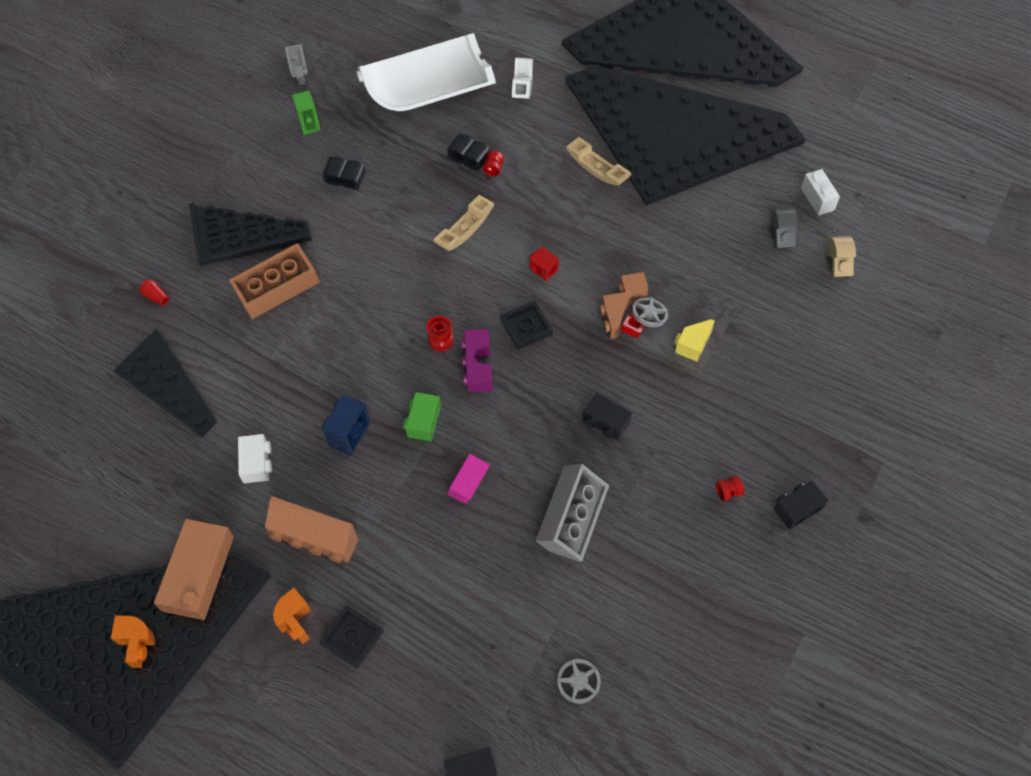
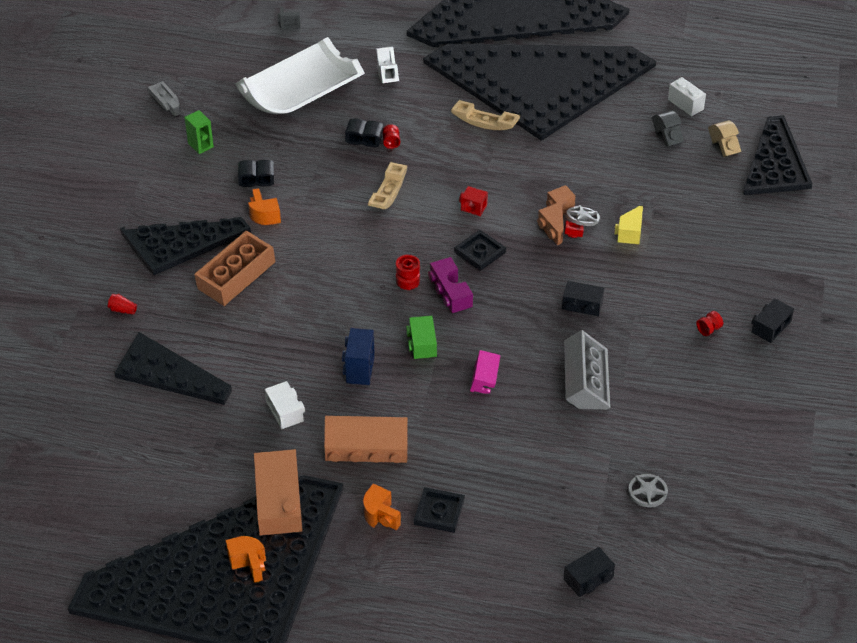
camera: 20 degrees left, 15 degrees down
(332, 219) = (263, 211): none -> orange brick
(888, 300) = (777, 161): none -> black wing

